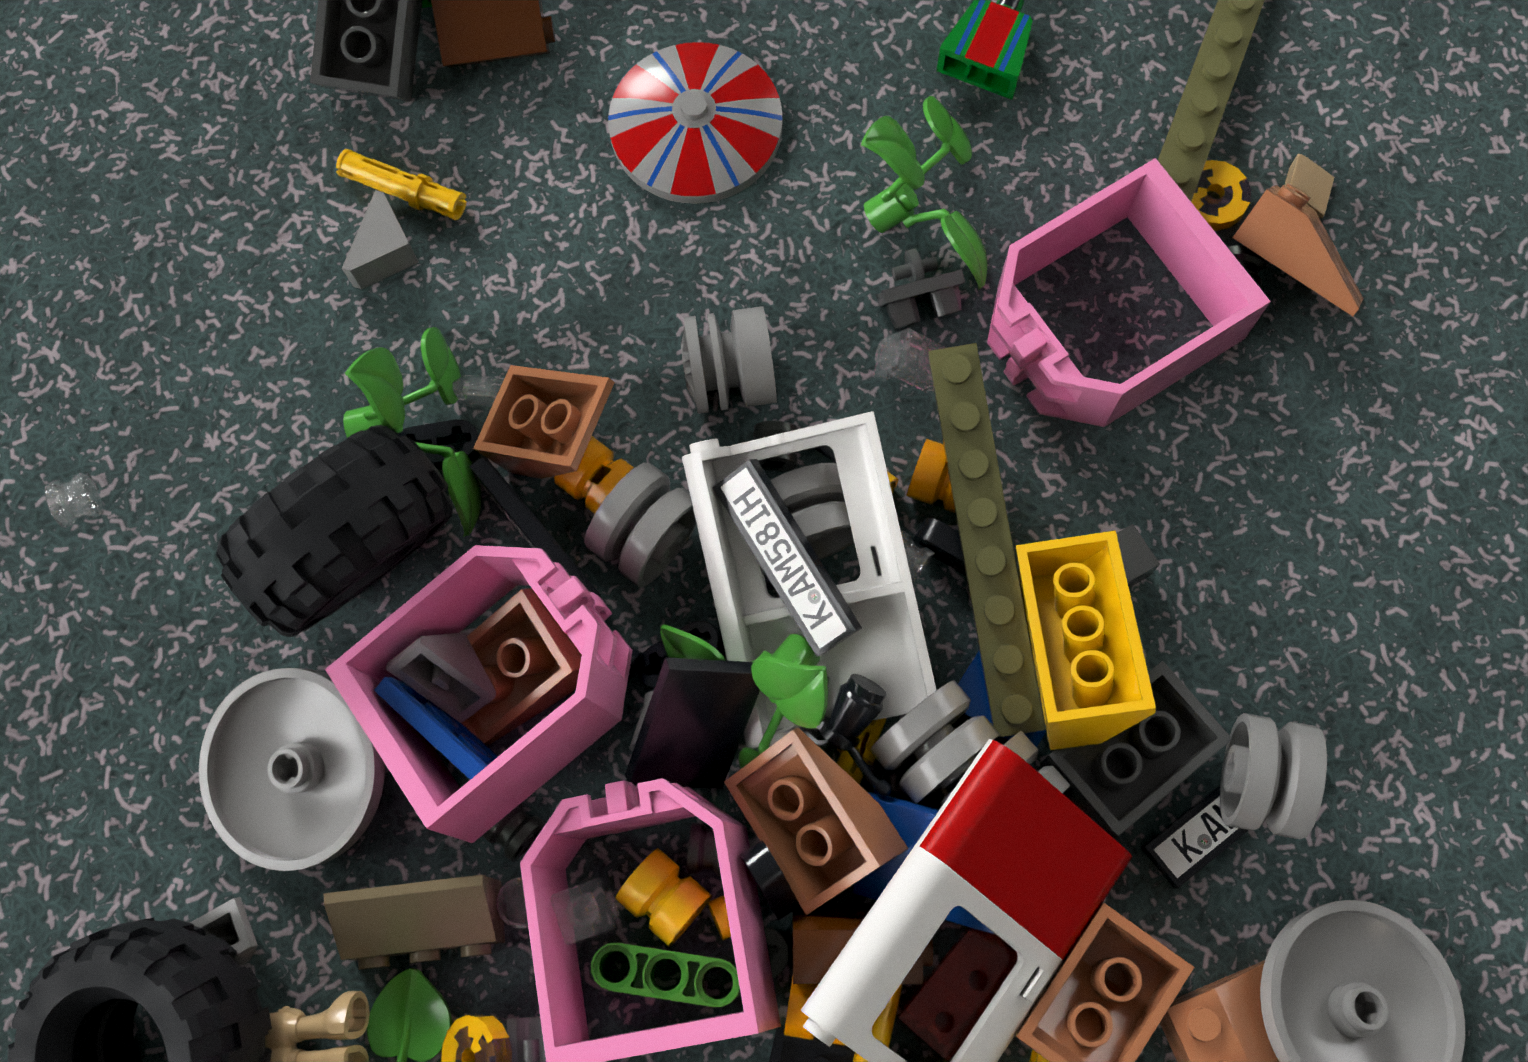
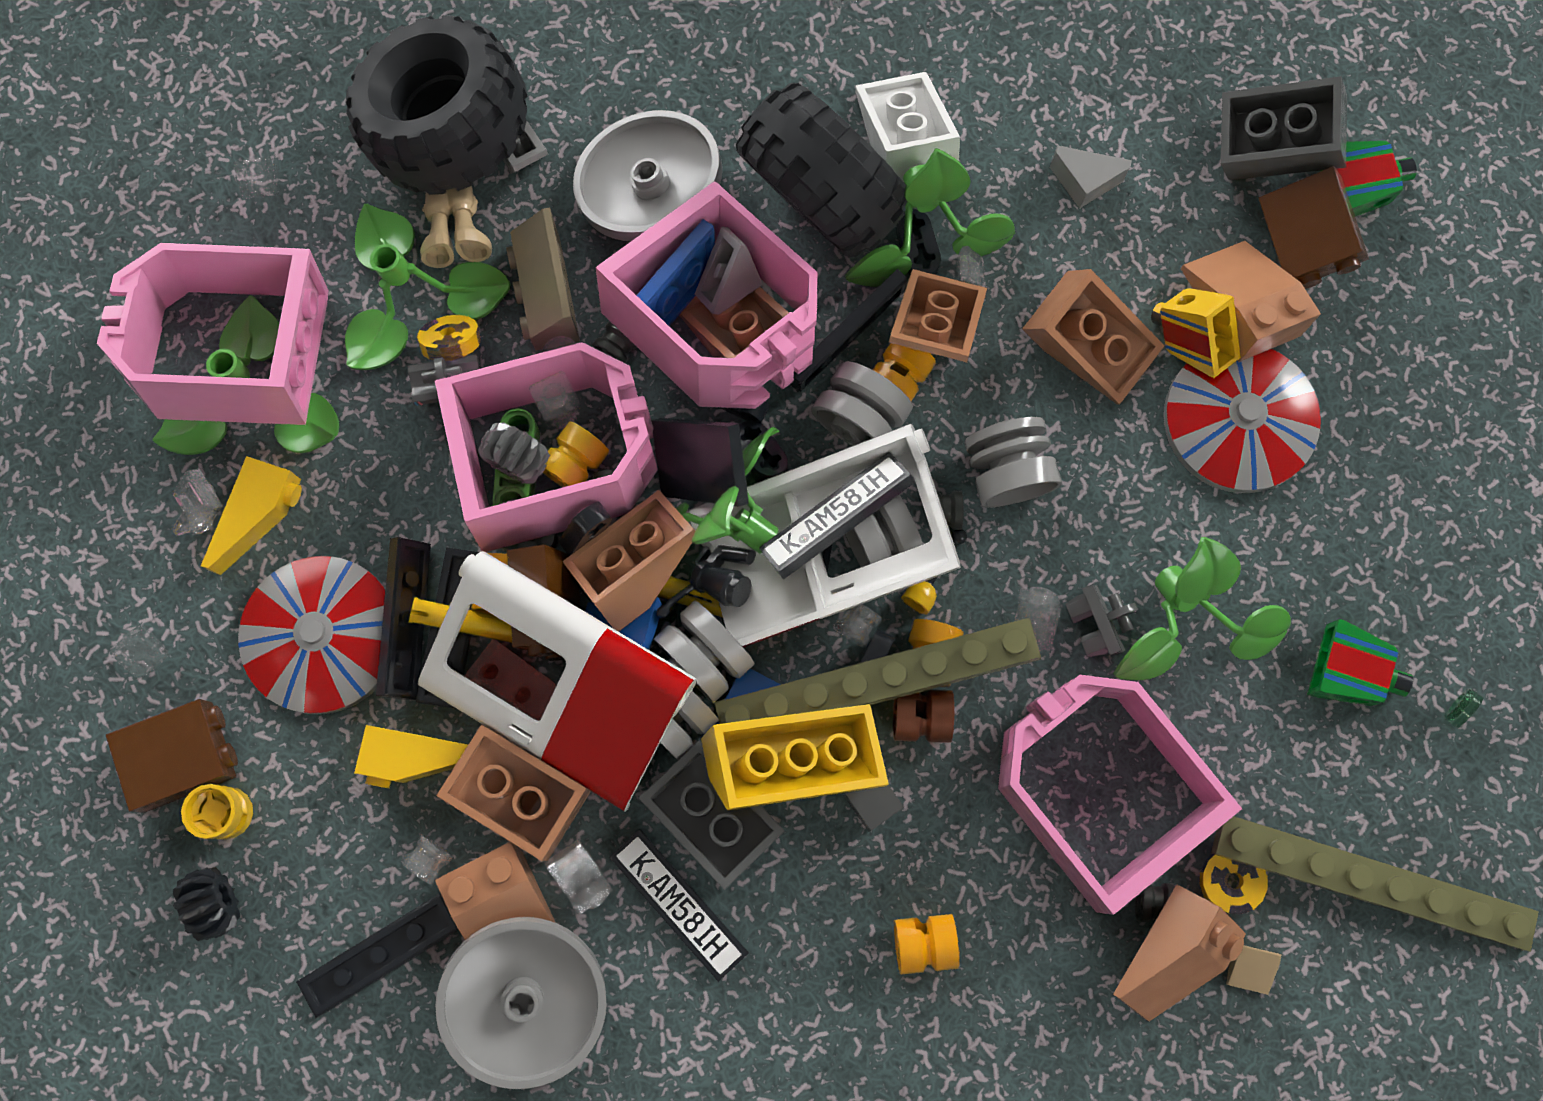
camera: 80 degrees right, 5 degrees up
(276, 434) = (906, 121): none -> white slope
(415, 189) = (1143, 195): yellow pin -> none
(560, 90) = (1267, 299): none -> nougat slope
(577, 261) = (1094, 334): none -> nougat slope
(592, 143) = (1200, 329): none -> yellow torso
(660, 966) = (513, 453): none -> dark grey gear
(1025, 485) = (937, 716): none -> copper wheel
(1206, 924) = (579, 877): none -> clear bracket
(1273, 776) = (695, 923): light grey wheel -> none
(1286, 518) = (926, 944): none -> light orange wheel

